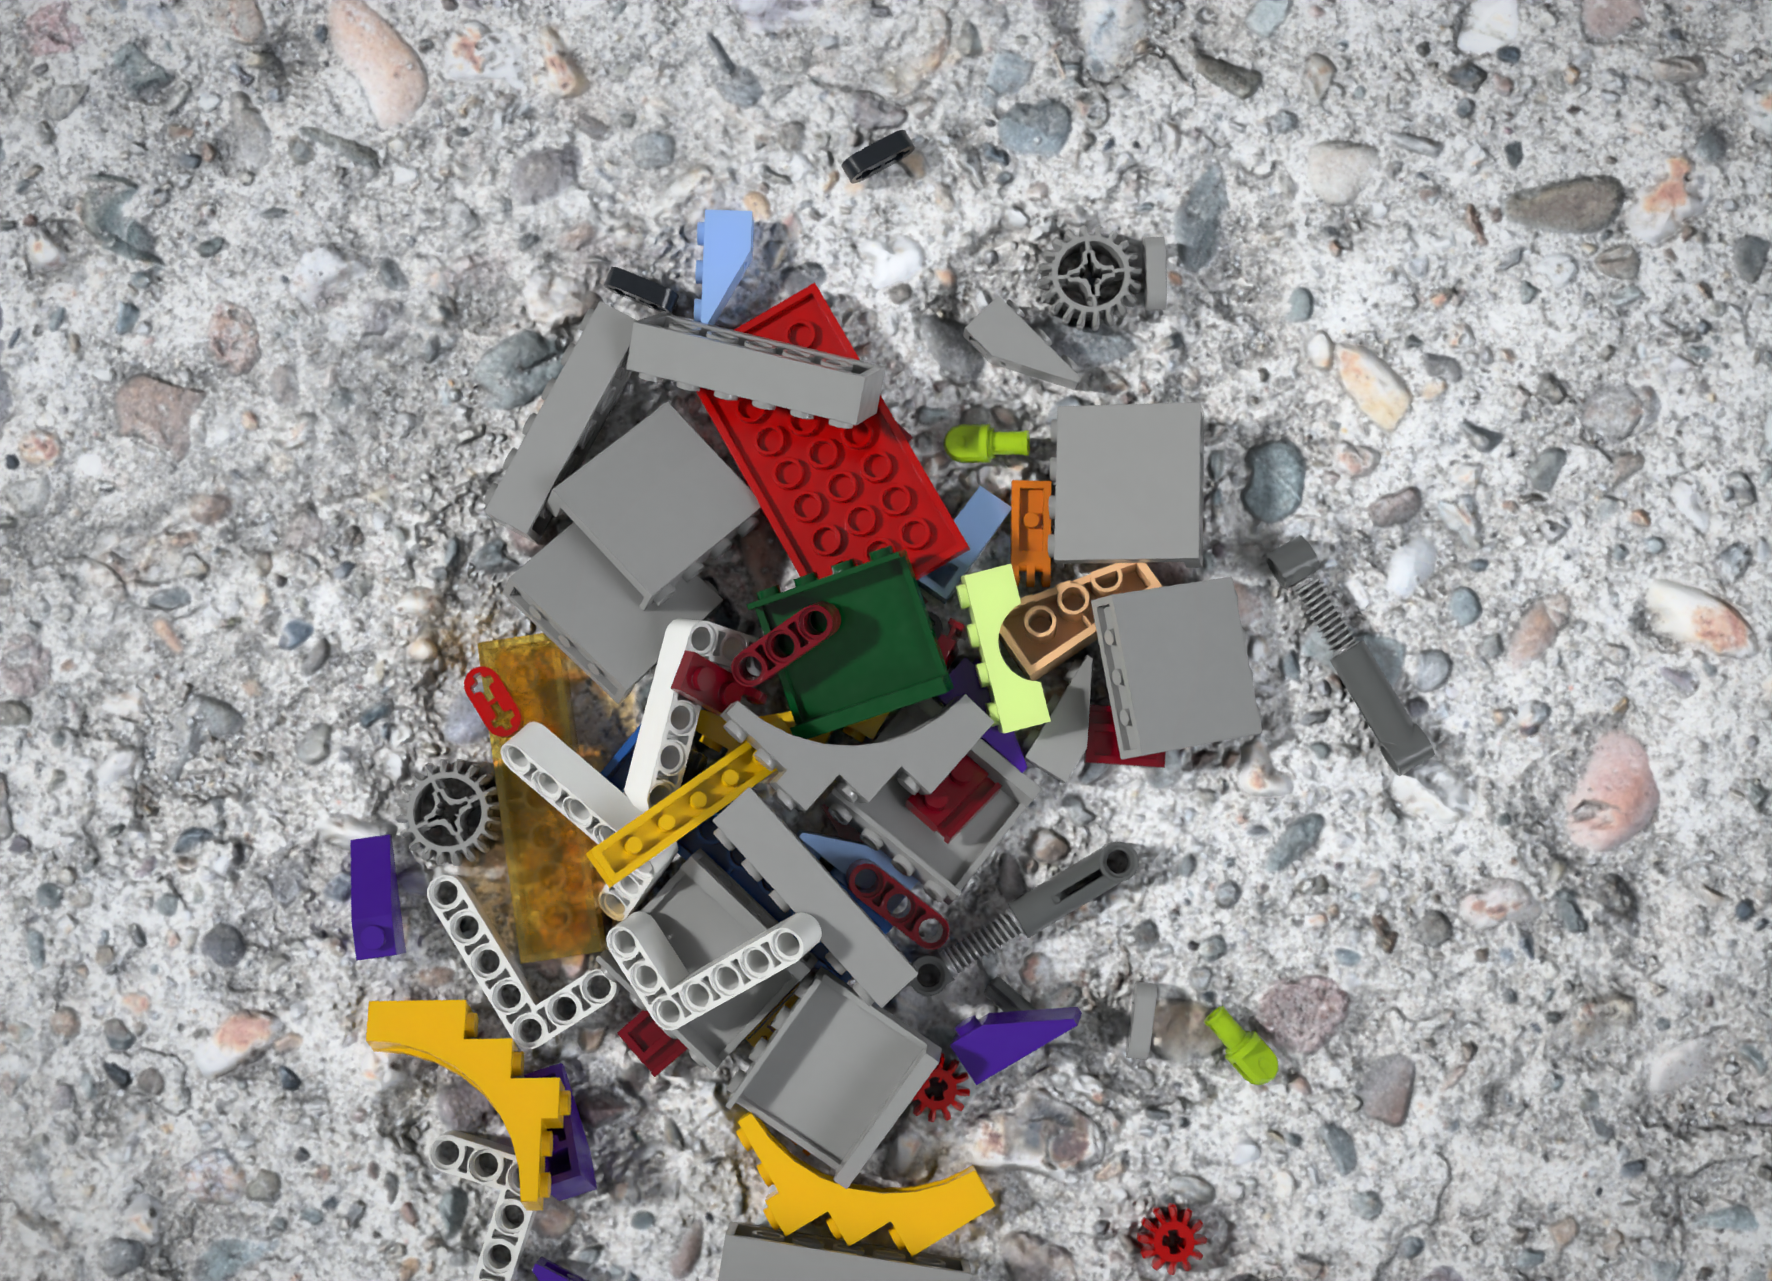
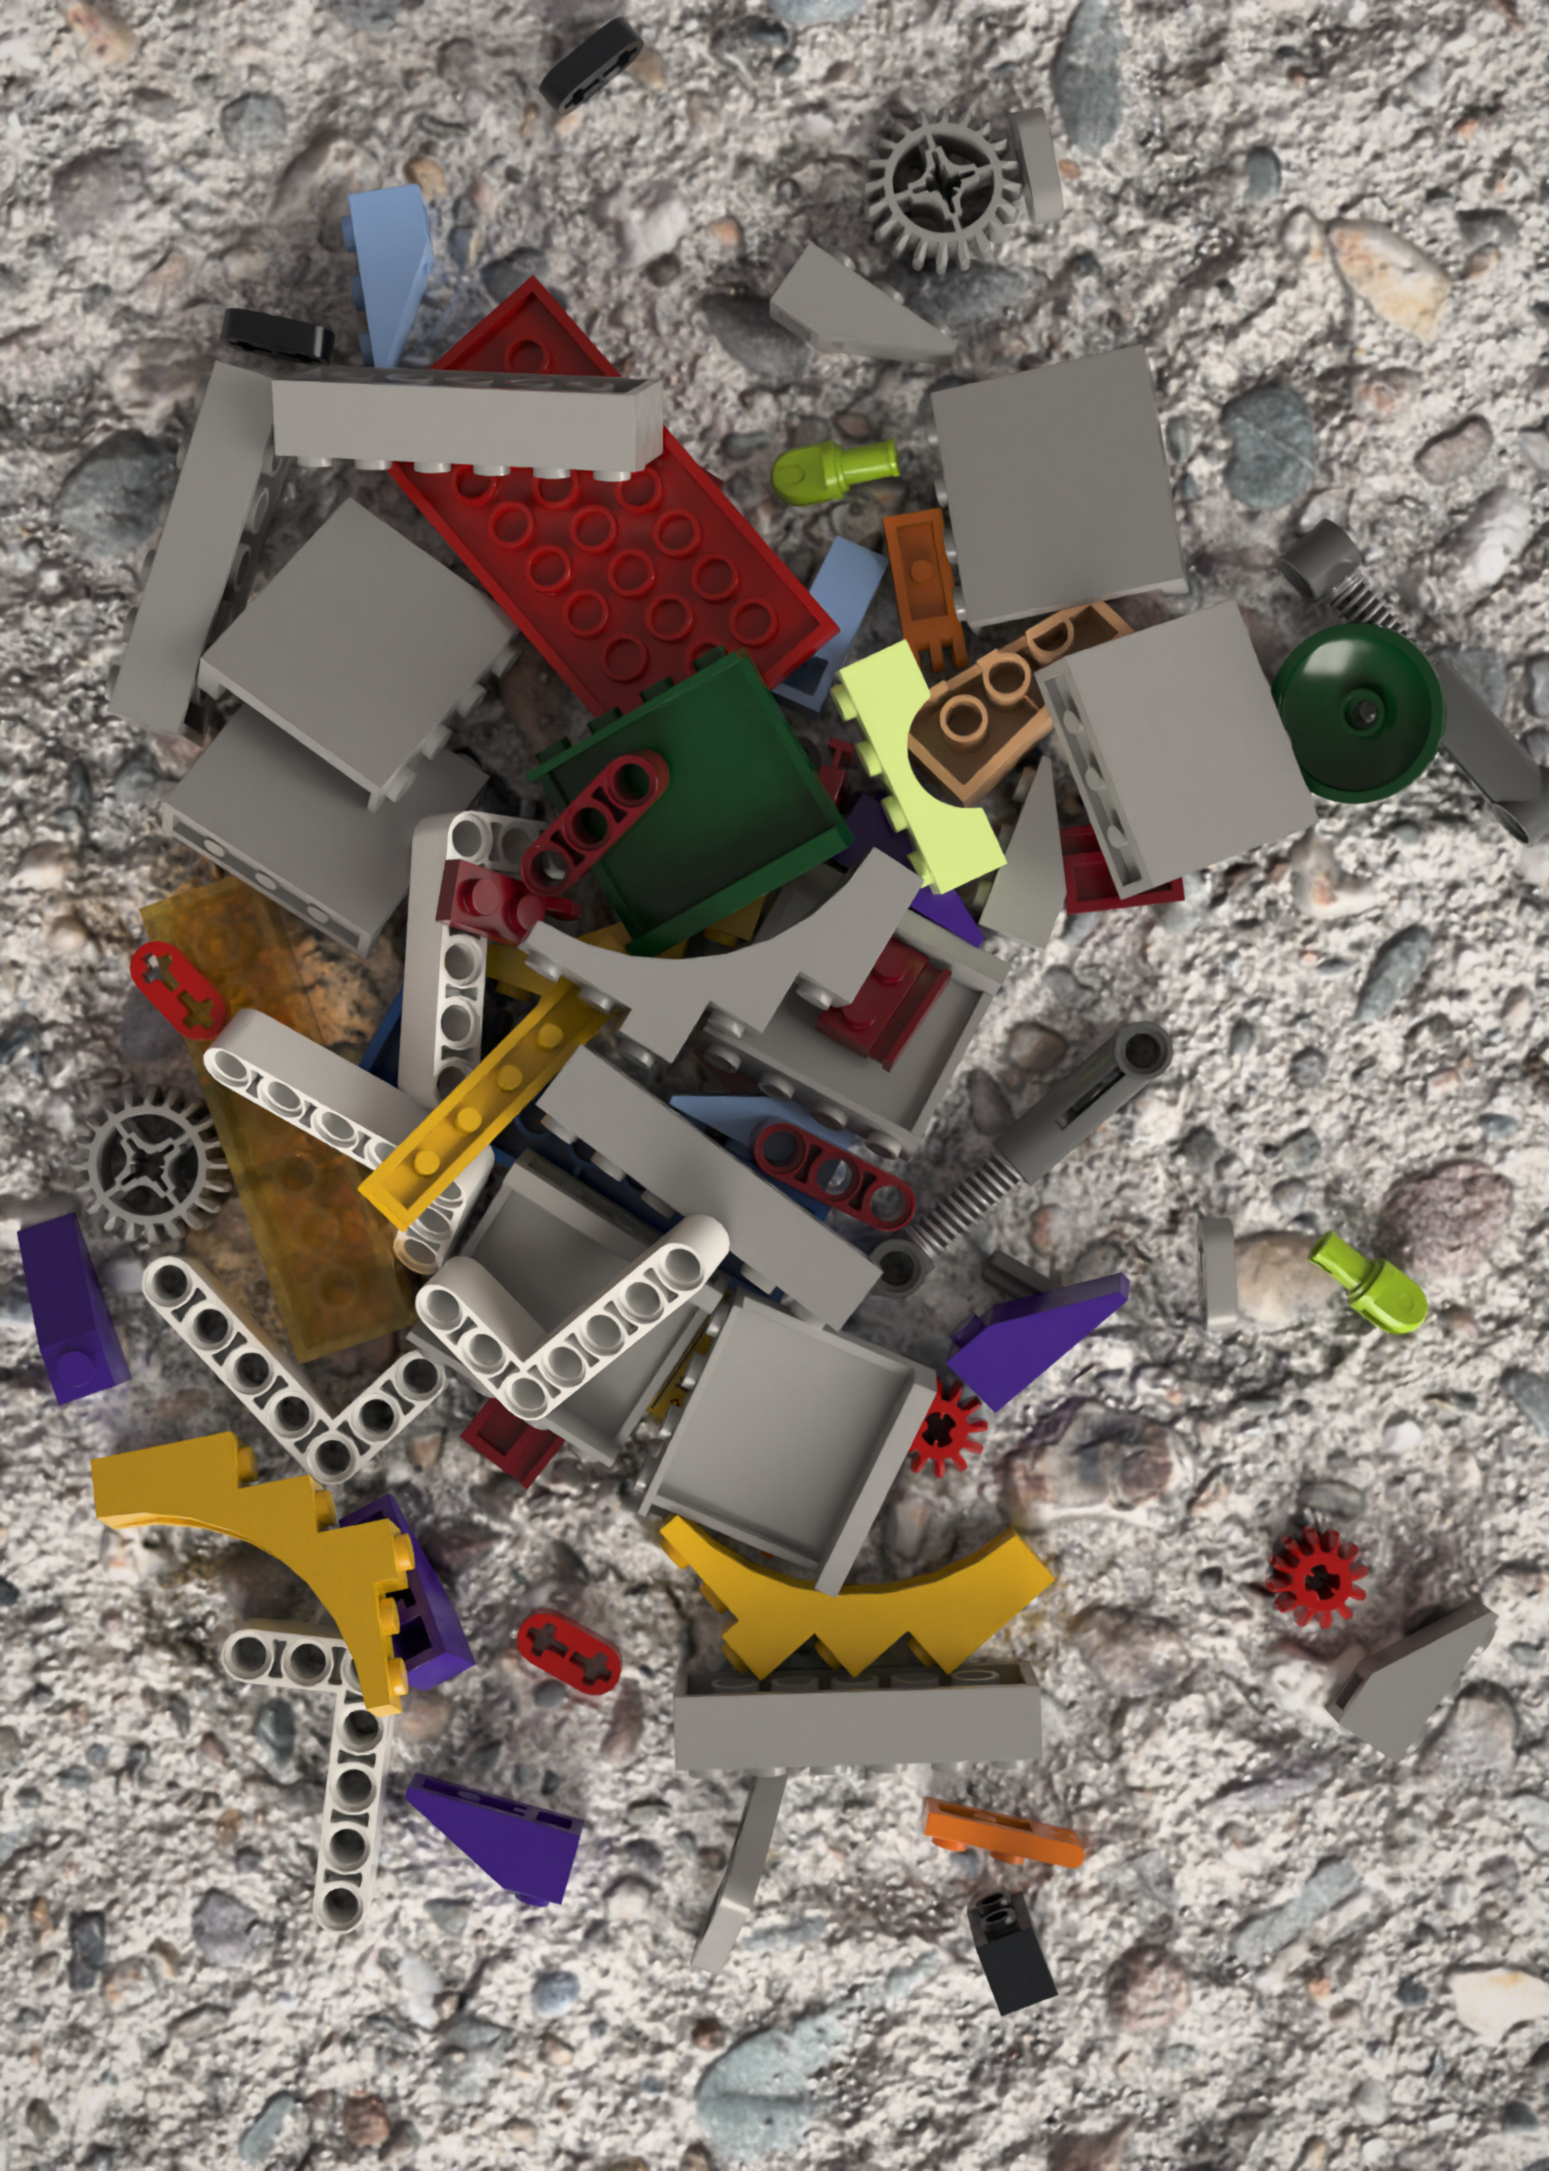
camera: 10 degrees left, 5 degrees up
(654, 1200) = (562, 1663): none -> red beam
(1277, 656) = (1321, 701): none -> dark green dish

